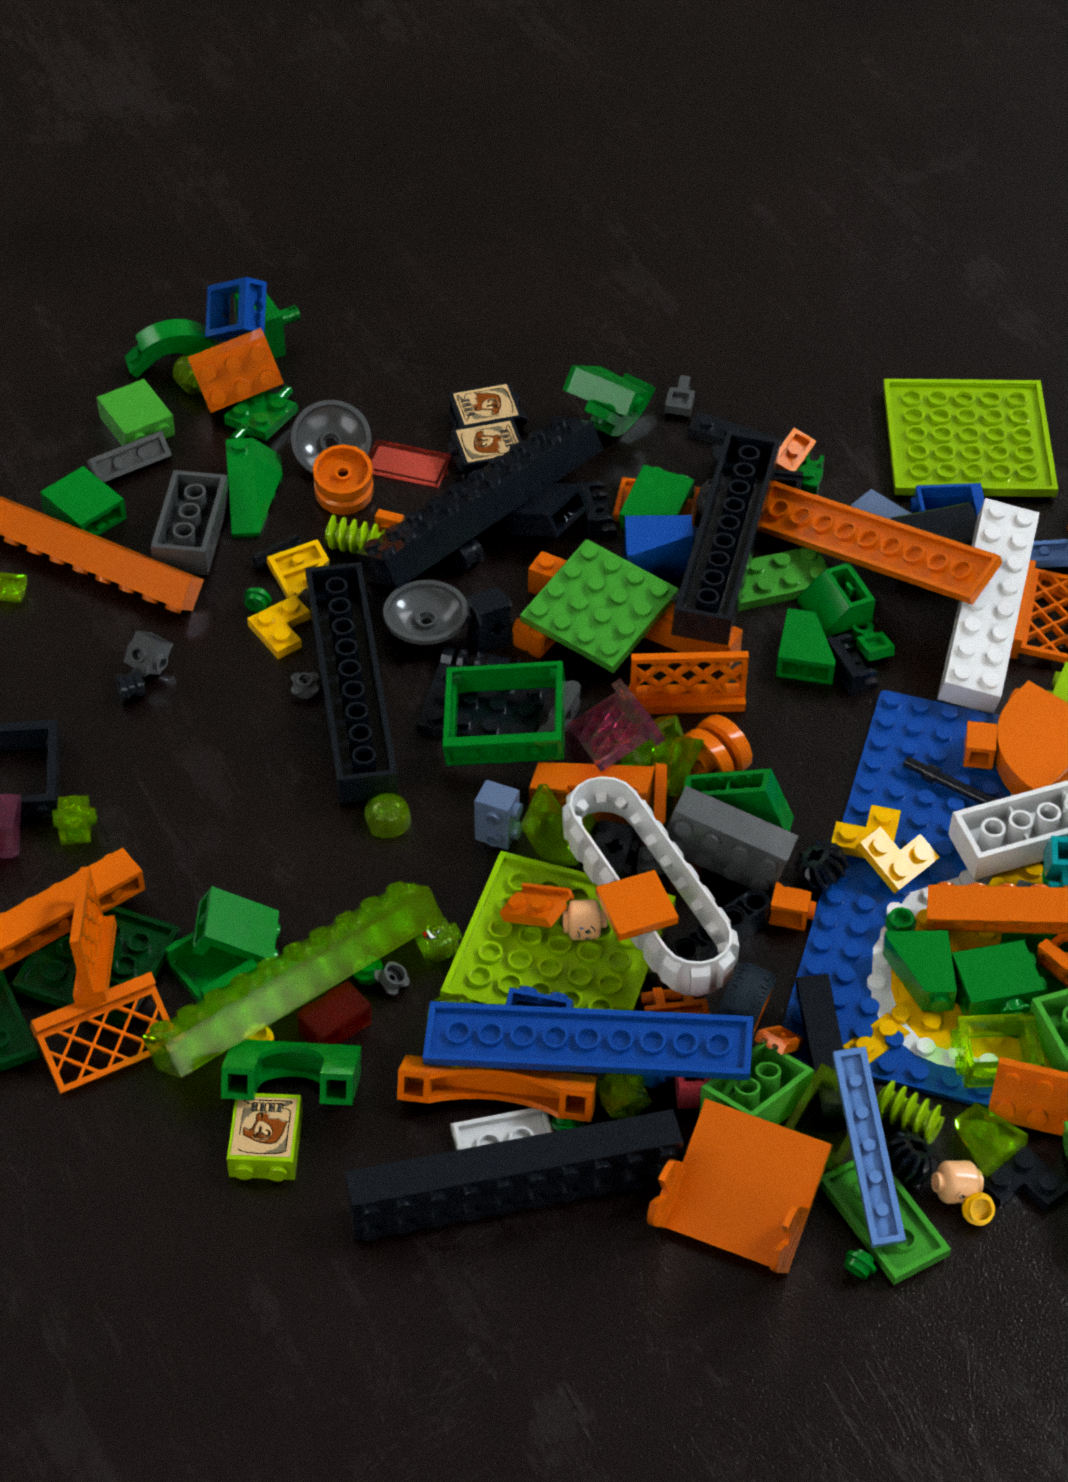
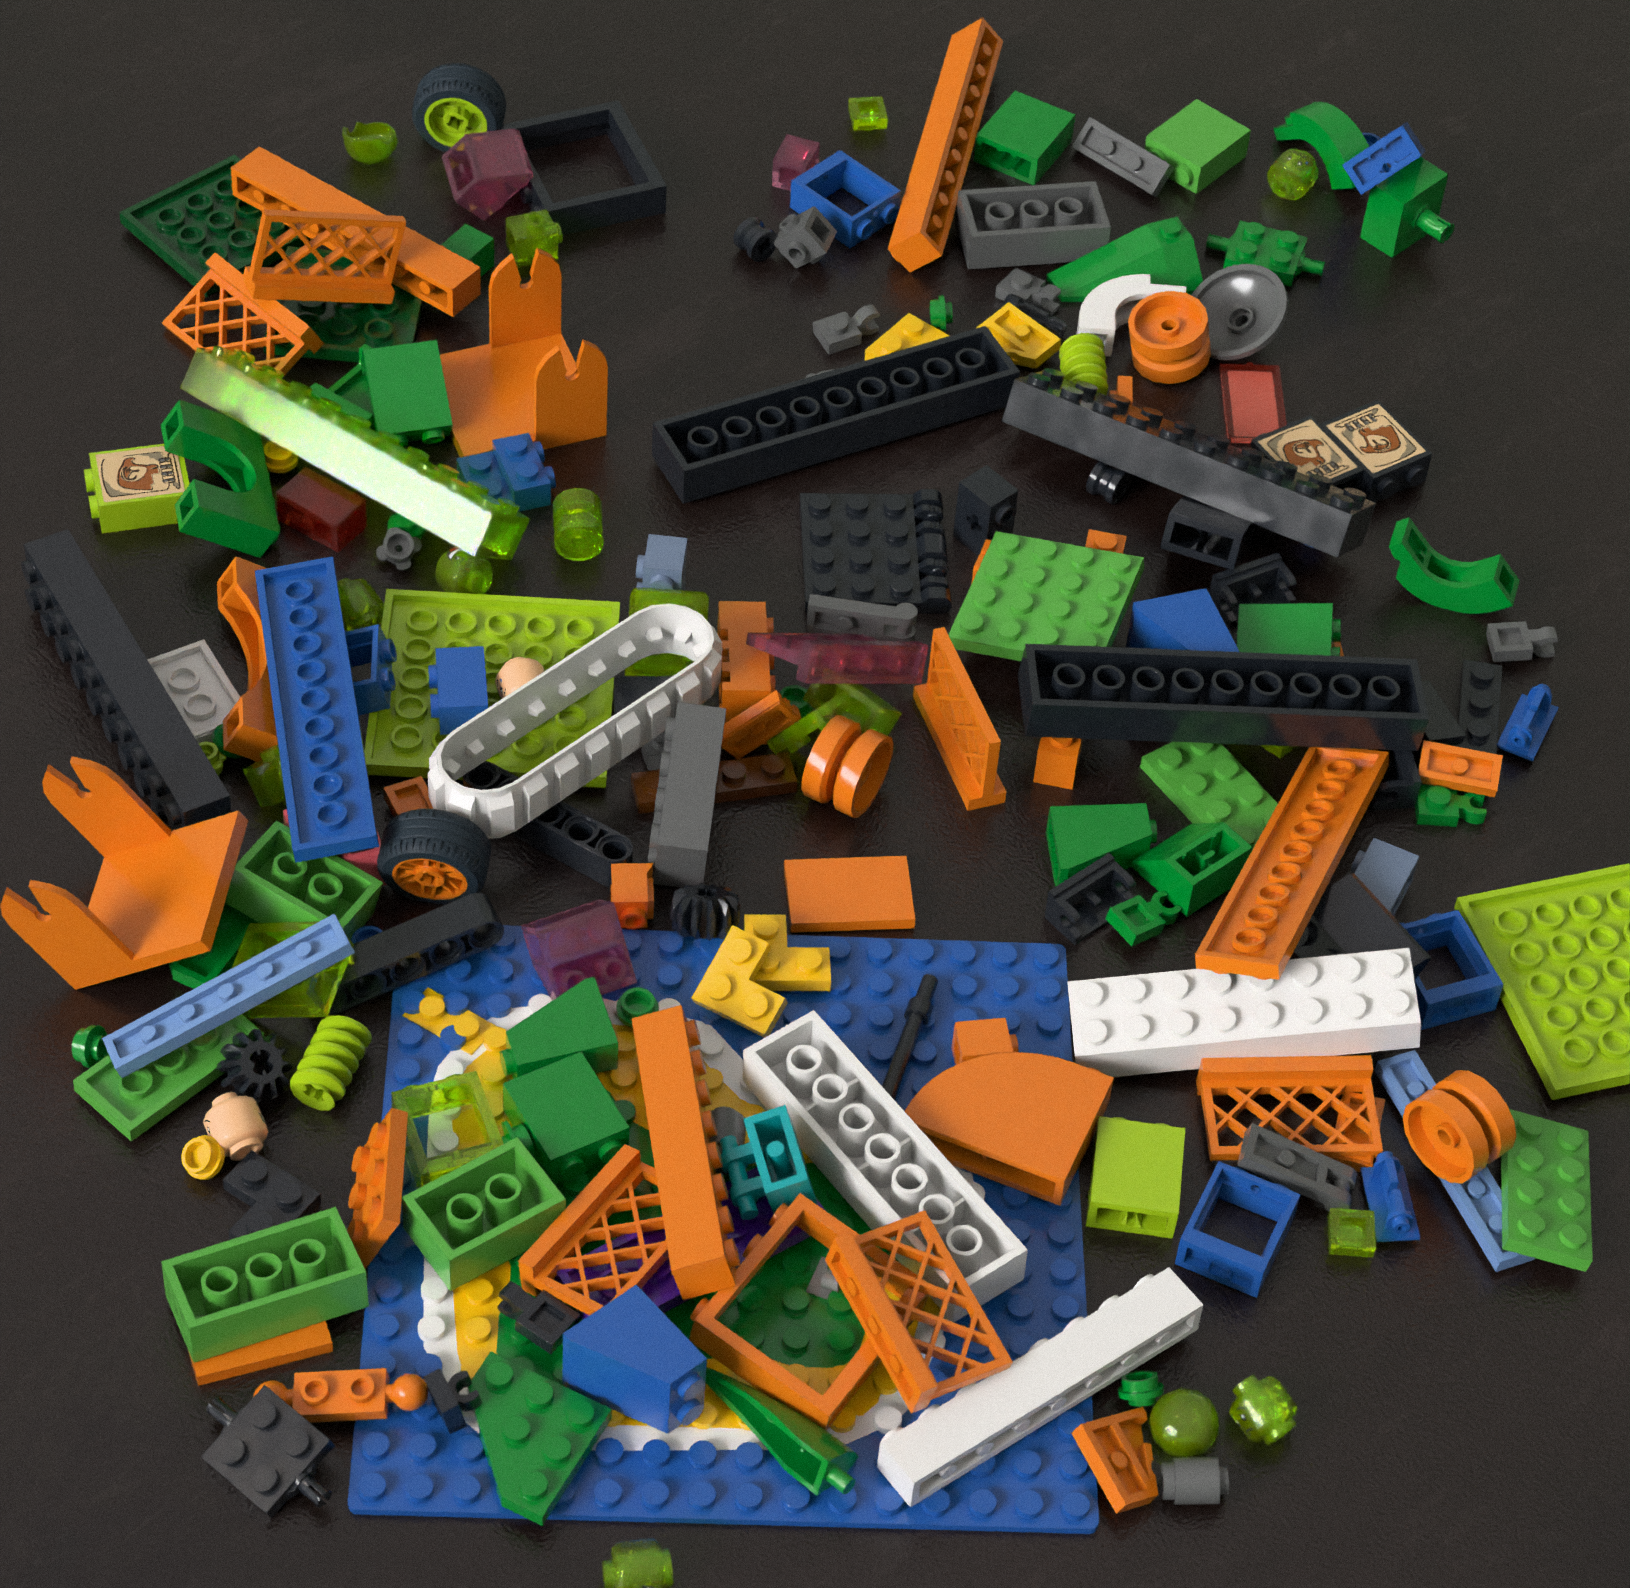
camera: 70 degrees right, 0 degrees up
(53, 641) = (793, 159): none -> clear pink brick
(67, 860) = (472, 246): none -> green brick
(102, 605) = (846, 173): none -> blue window
(235, 370) = (1297, 194): orange brick -> none
(243, 548) = (1029, 289): none -> dark grey plate
(245, 859) = (526, 372): none -> orange piece
(247, 662) = (842, 332): none -> dark grey plate
(292, 511) = (1111, 305): none -> white arch
(332, 891) = (512, 471): none -> blue plate
(387, 815) = (647, 498): clear neon green hair -> none
(411, 858) = (578, 524): none -> clear neon green wheel
(425, 612) = (970, 442): dark grey dish -> none
(503, 747) = (816, 505): green window -> none
(536, 905) = (525, 633): orange plate -> none
(577, 957) = (459, 686): none -> blue brick
(606, 390) = (1447, 533): green slope -> none
(636, 905) = (505, 689): orange tile -> none
(747, 790) = (763, 805): green brick -> none
(752, 416) = (1528, 723): none -> blue hinge
(780, 1037) = (382, 903): orange tile -> none
(813, 788) = (849, 894): none -> orange tile
(846, 941) = (580, 946): none -> clear pink slope
(989, 1137) = (312, 1150): clear neon green wing -> none

